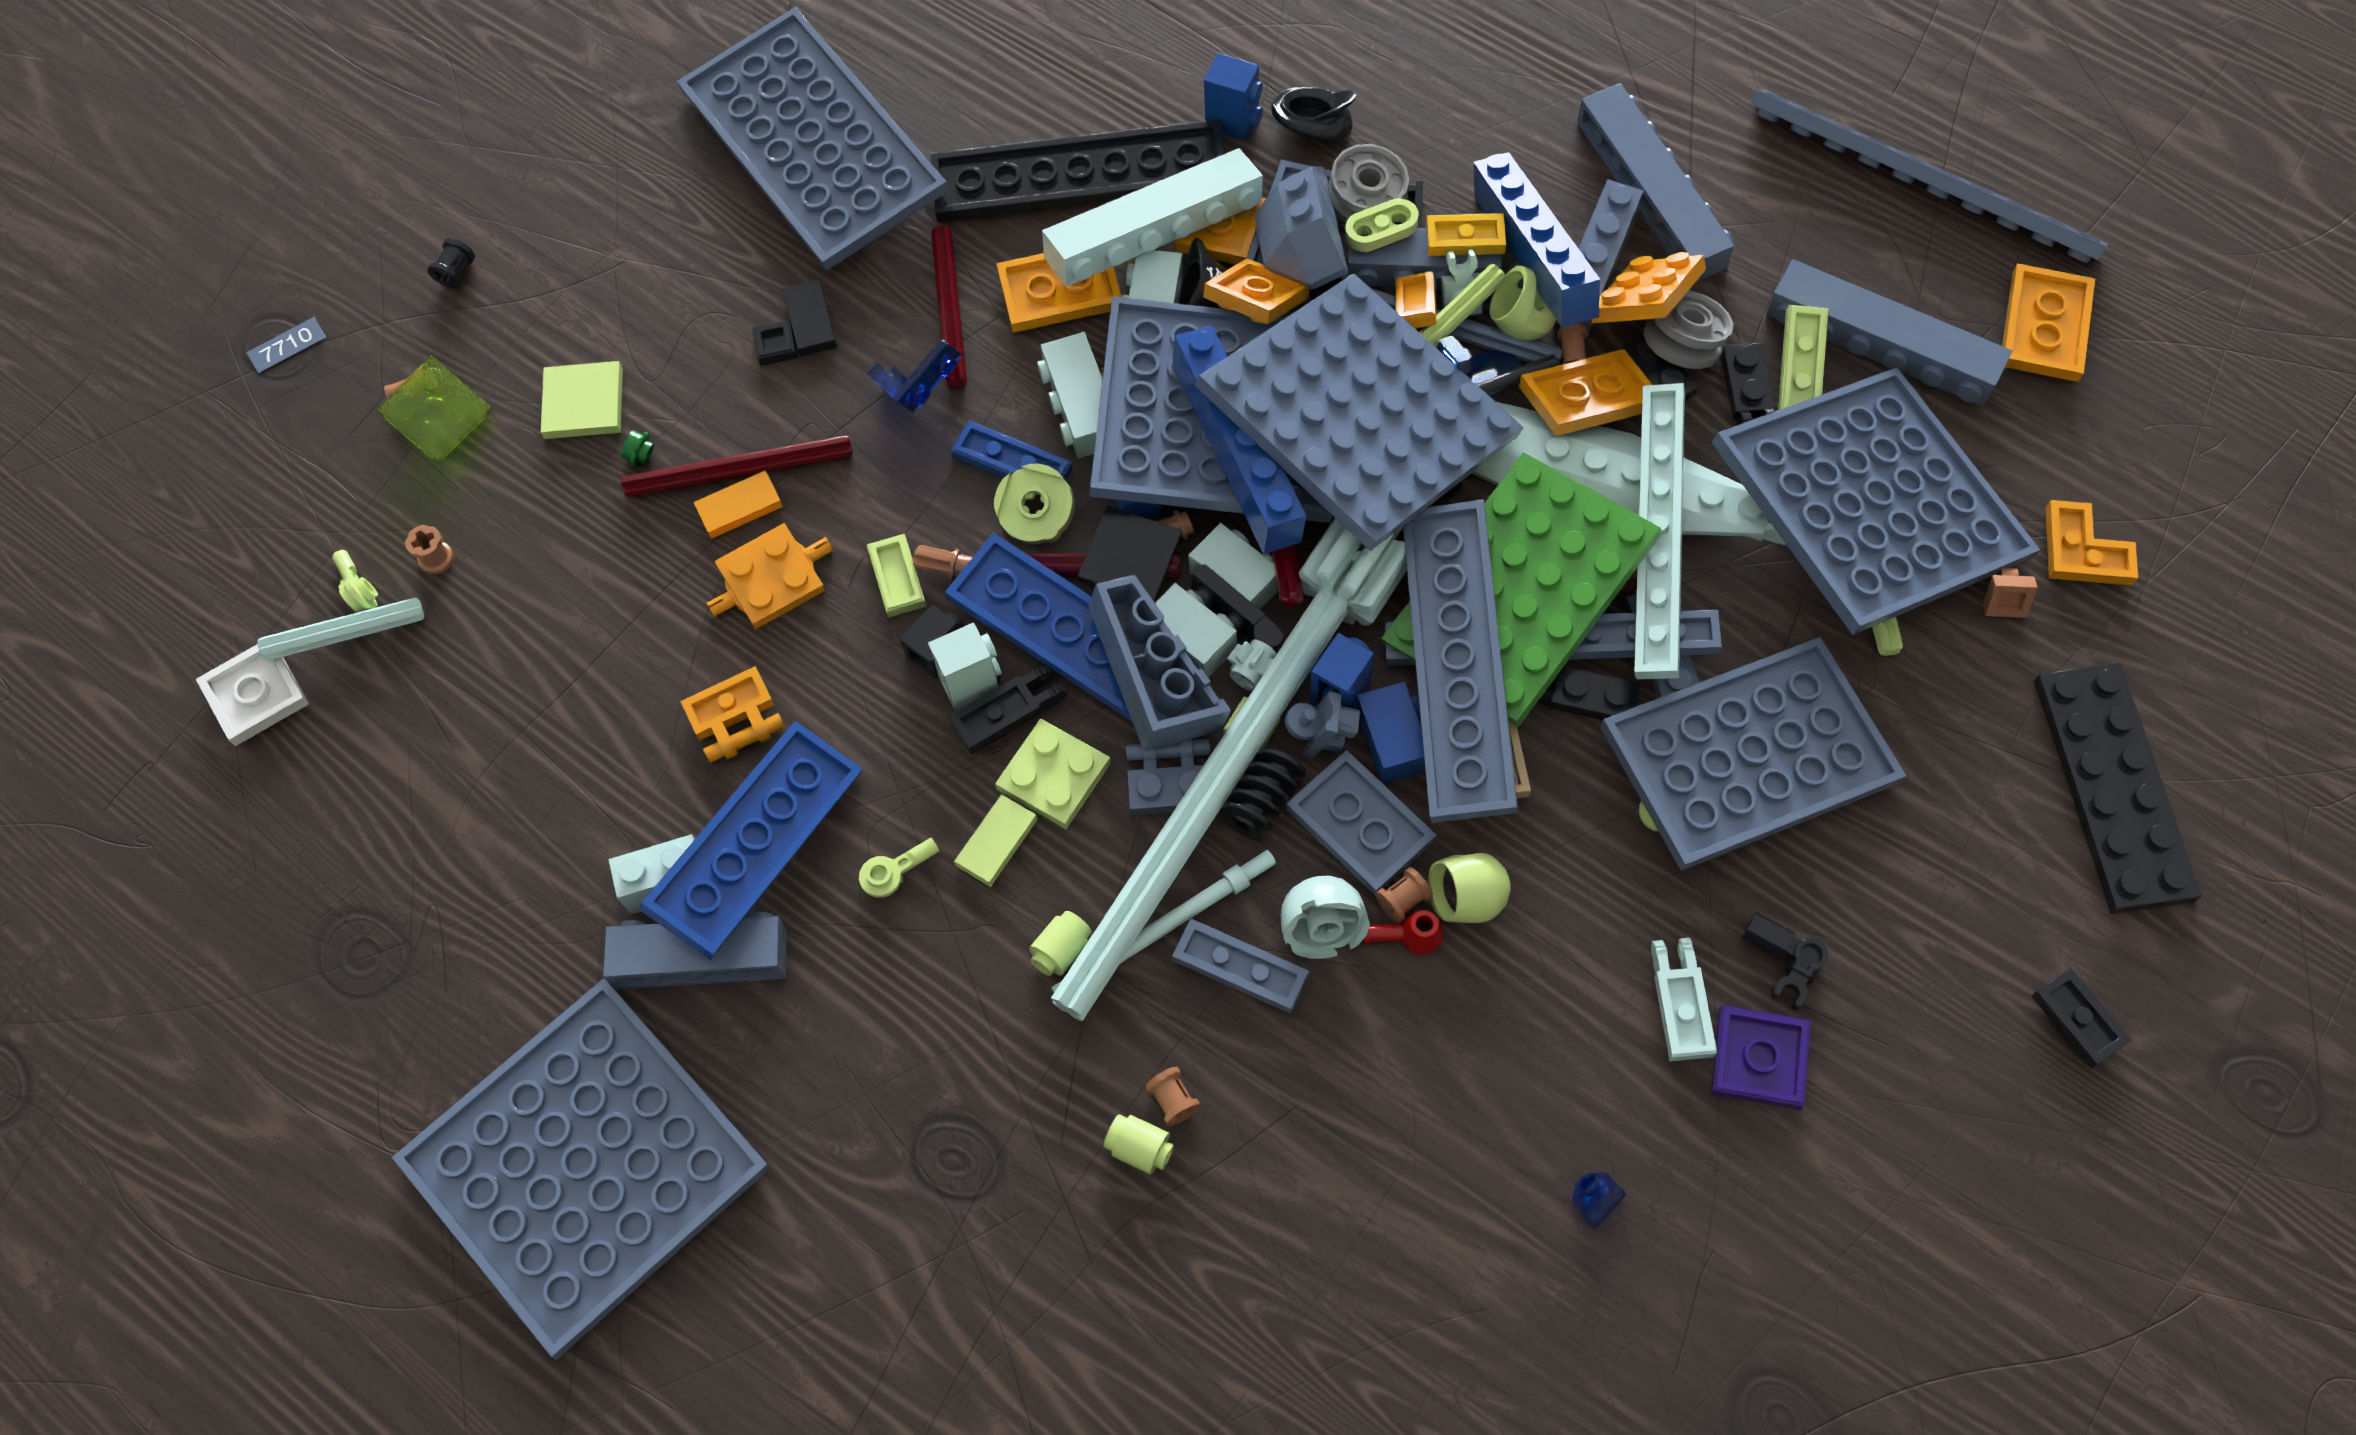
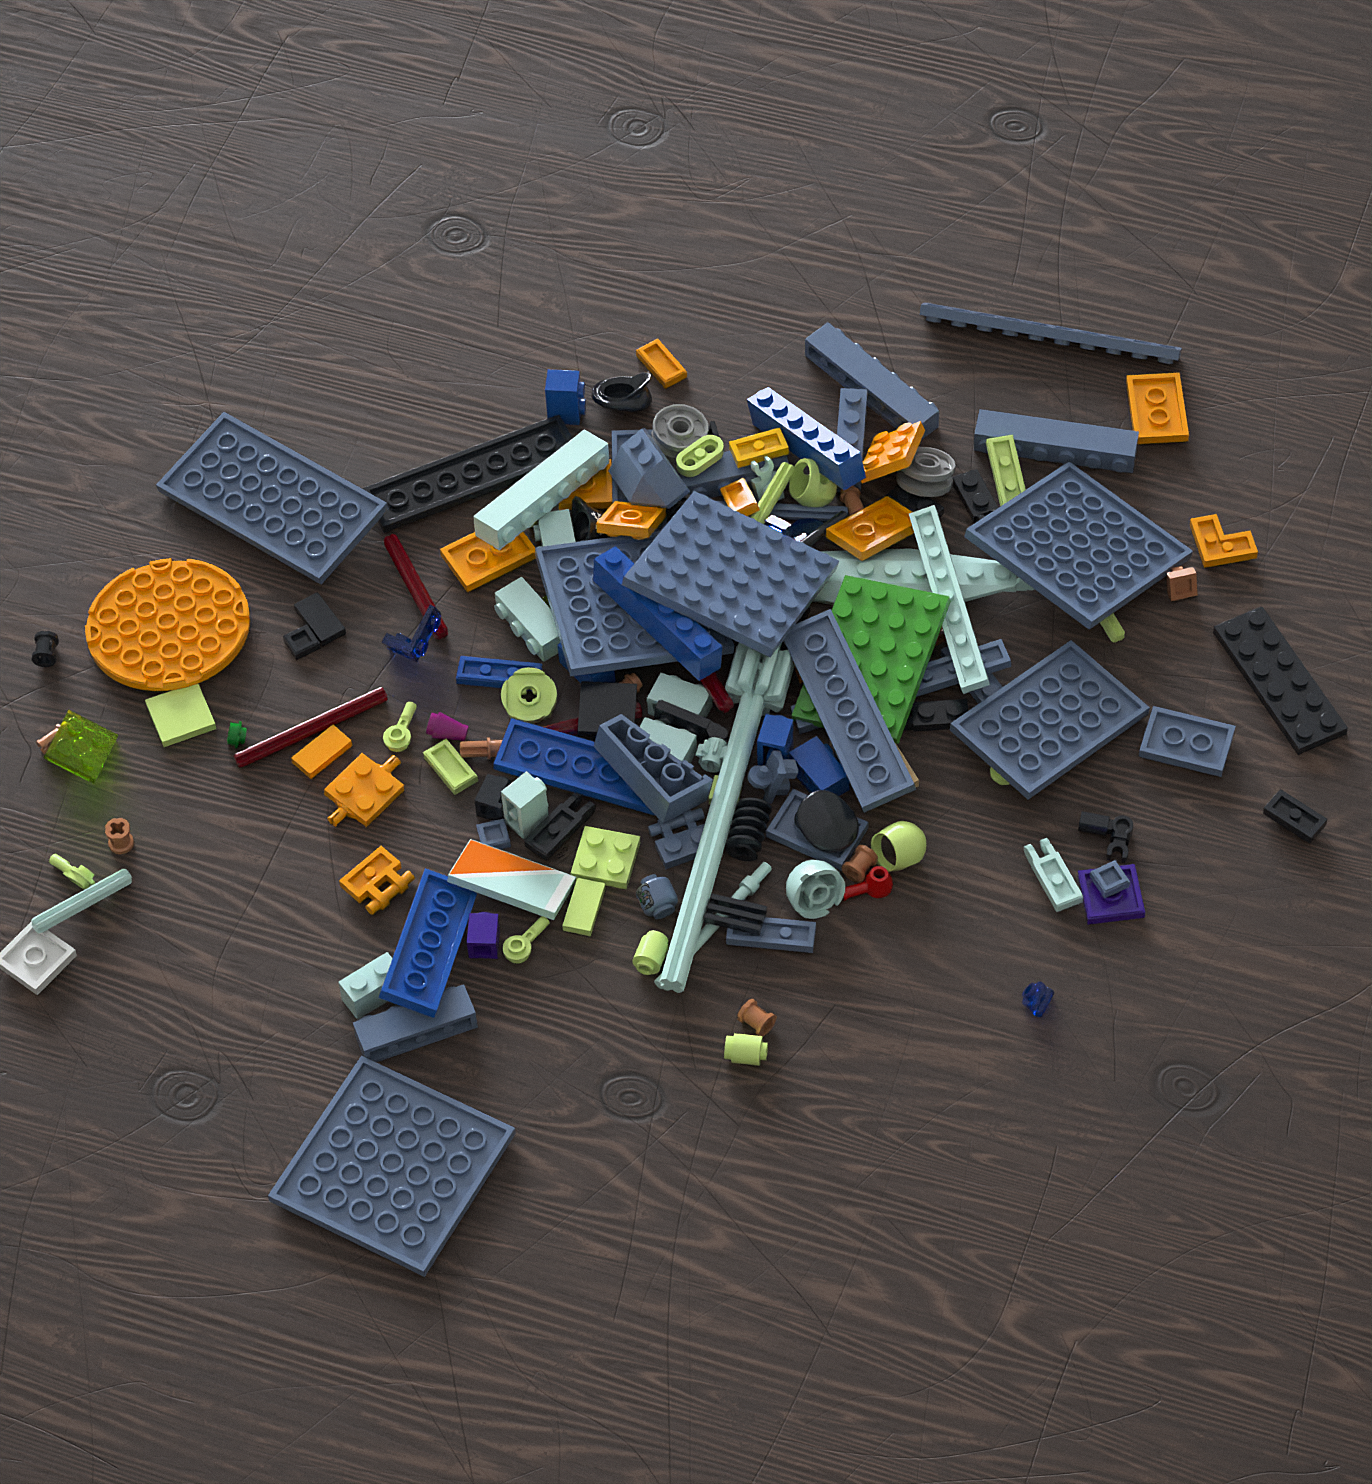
camera: 20 degrees left, 10 degrees down
(615, 273) = (167, 624): none -> light orange tile
(840, 843) = (483, 935): none -> dark purple brick
(843, 511) = (398, 736): none -> yellowish green plate
(907, 517) = (444, 727): none -> magenta cone
(909, 771) = (511, 879): none -> tile
(914, 694) = (494, 834): none -> sand blue tile
(1098, 858) = (657, 896): none -> sand blue head
(1166, 904) = (735, 909): none -> black tile
(1375, 821) = (827, 821): none -> black piece
(1381, 85) = (661, 363): none -> light orange tile
(1765, 1036) = (1109, 879): none -> sand blue tile
(1948, 845) = (1187, 741): none -> sand blue plate

